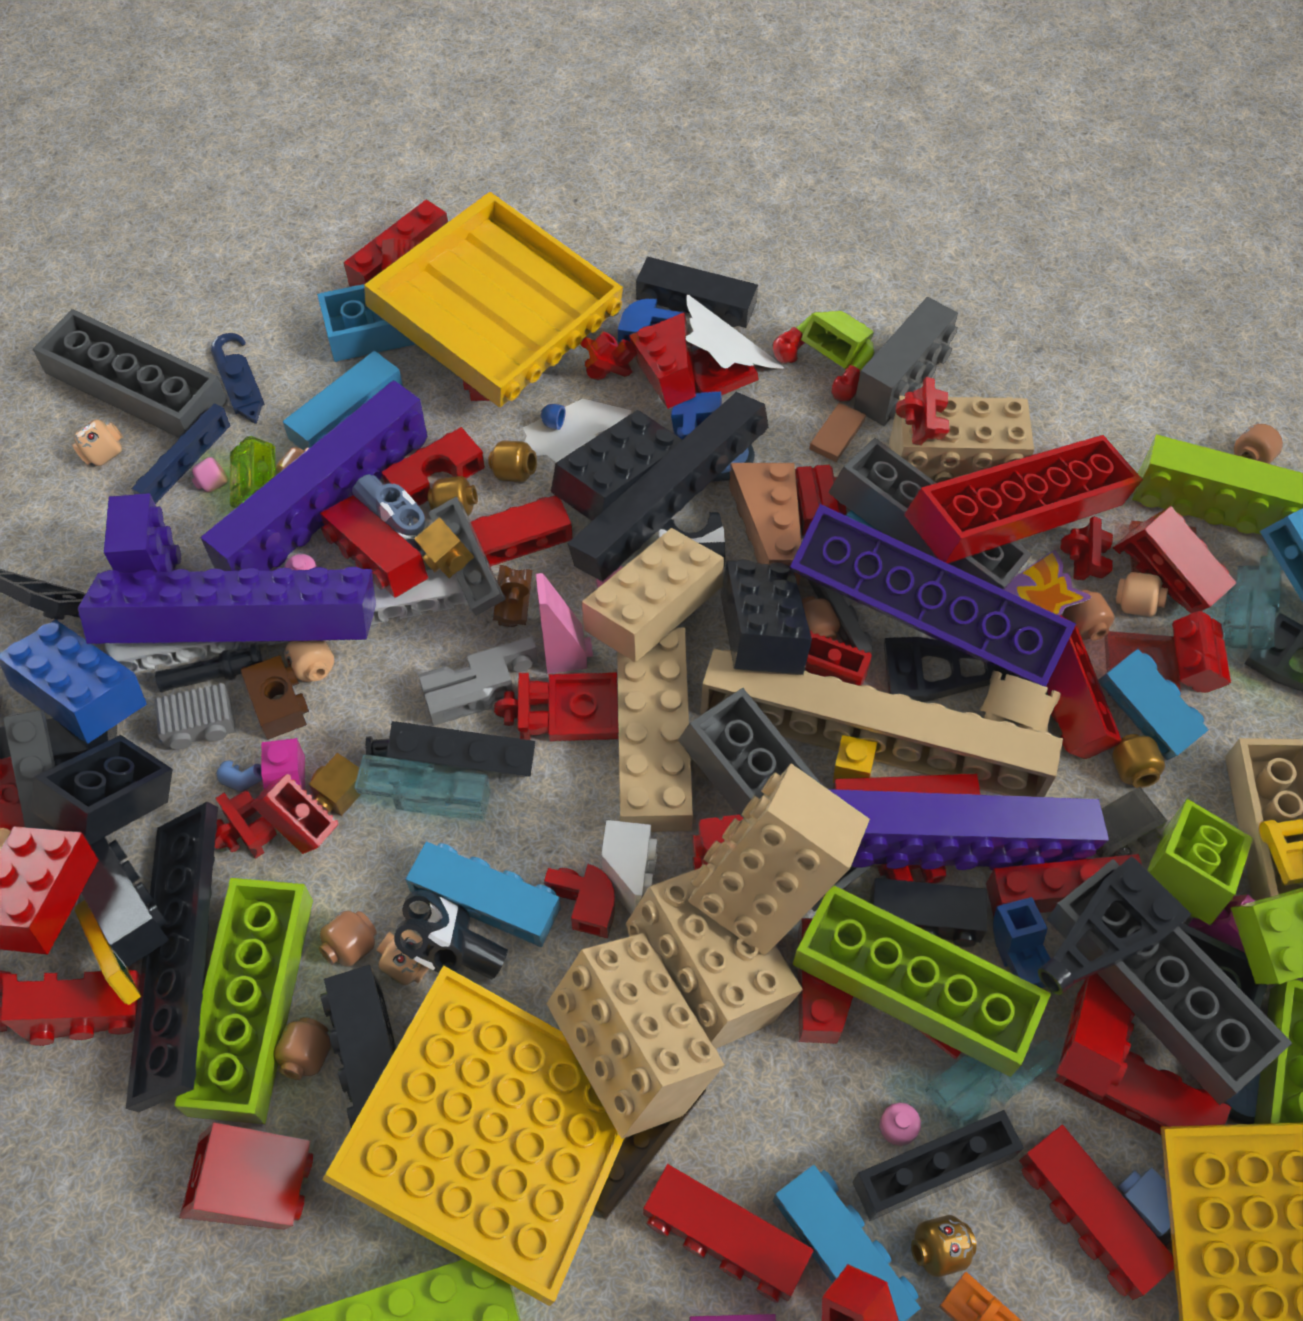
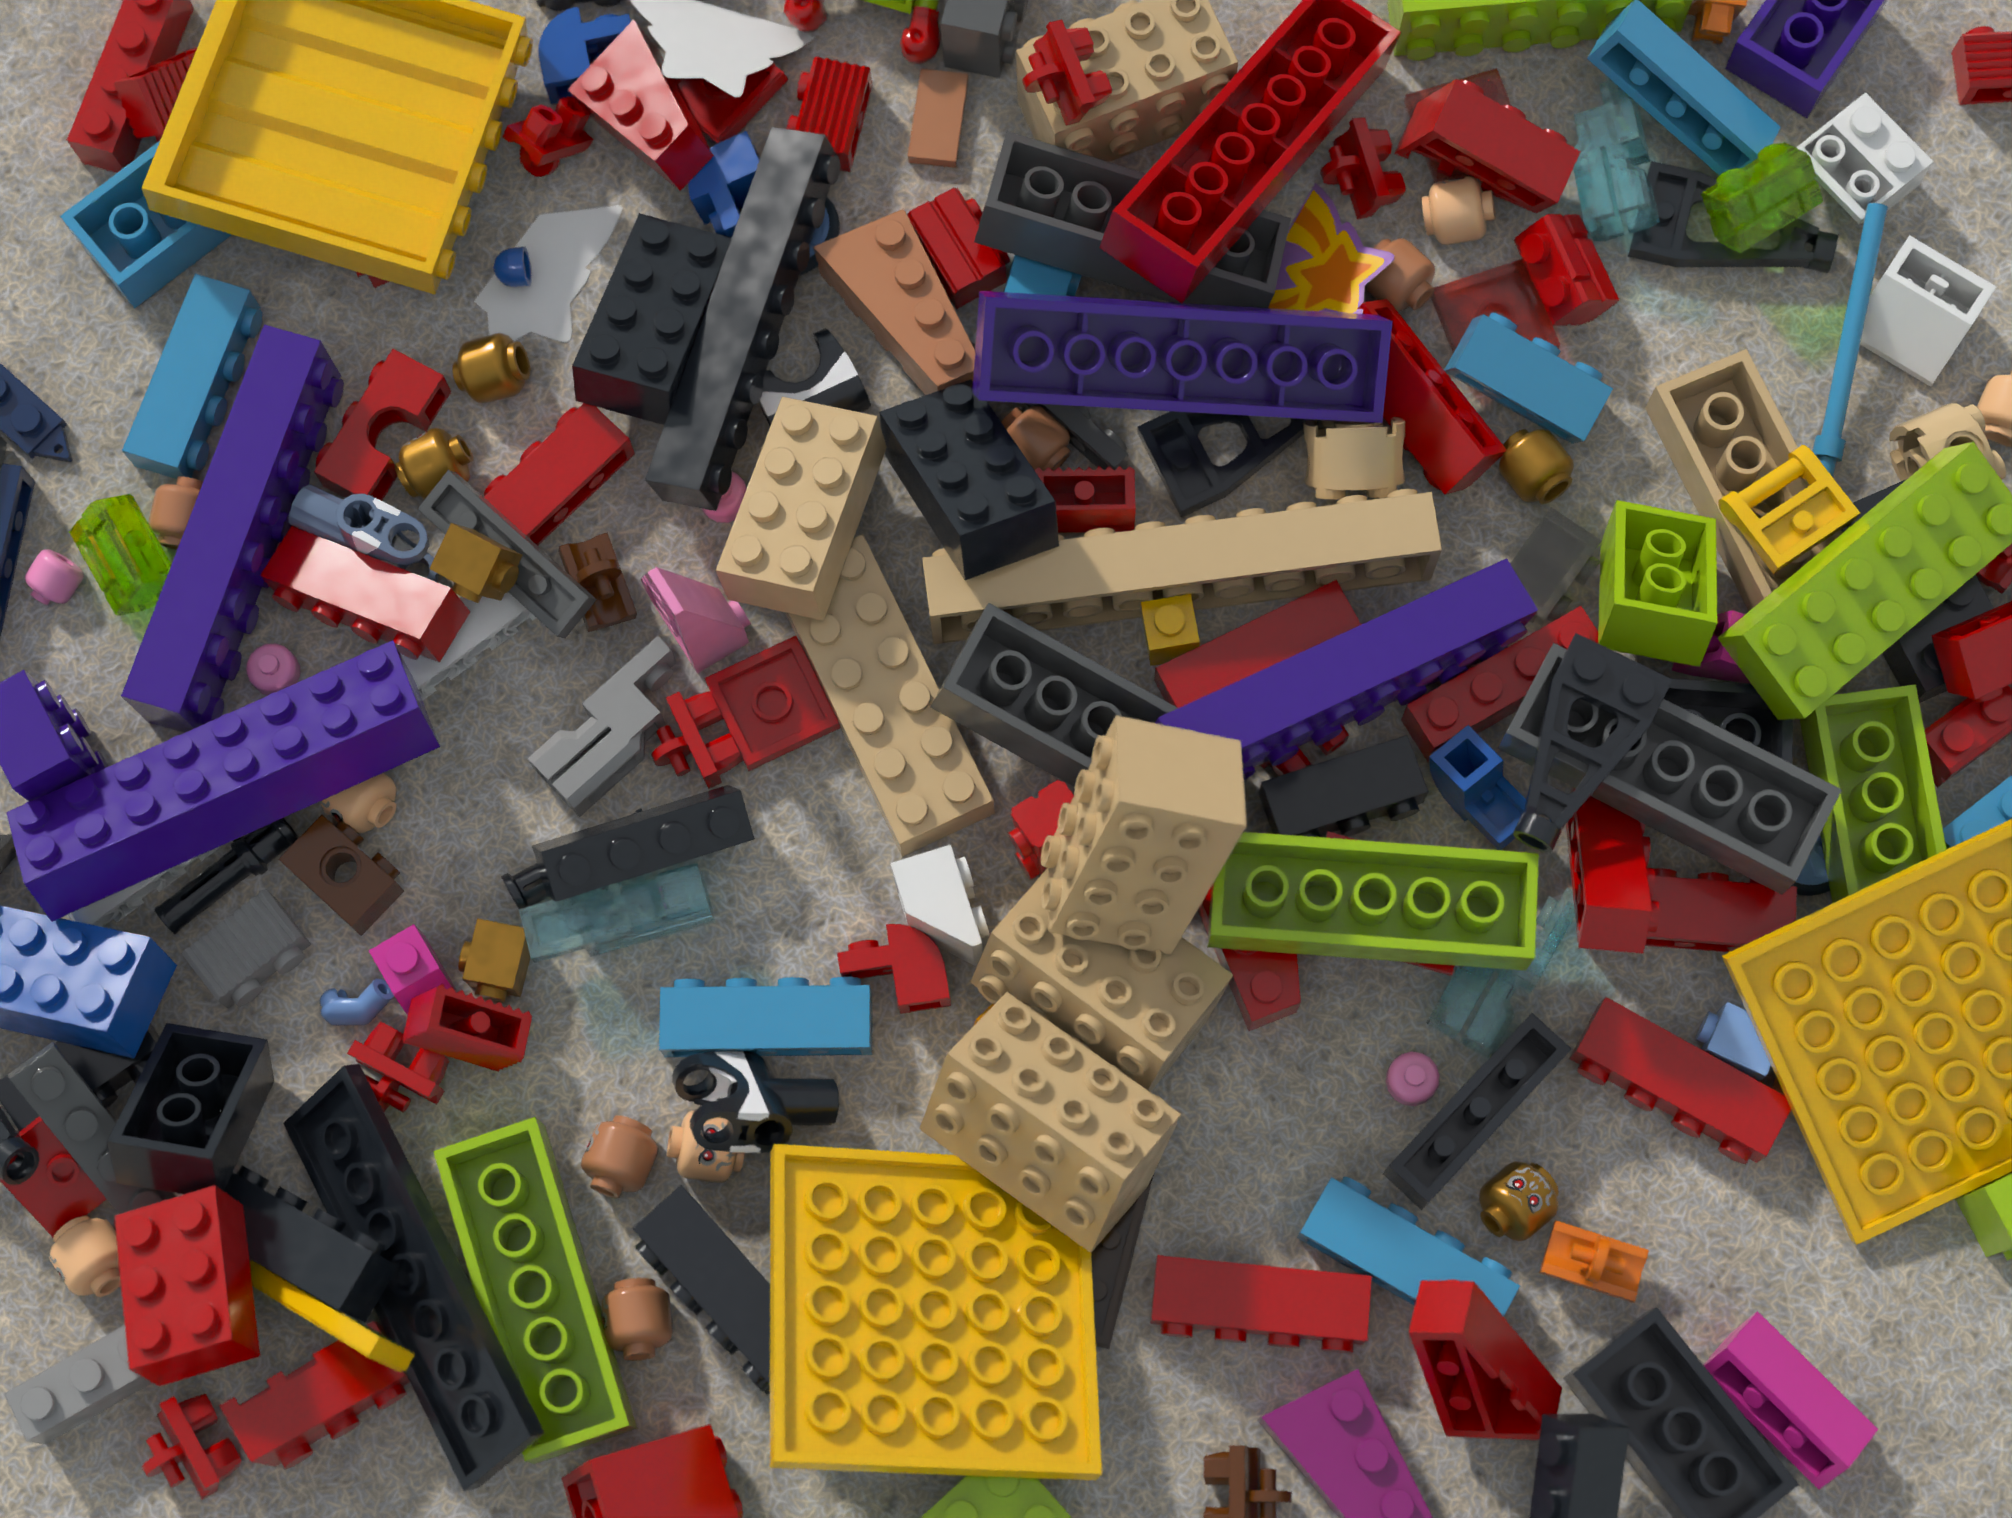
camera: 20 degrees left, 15 degrees up
(783, 401) = (834, 105): none -> red brick

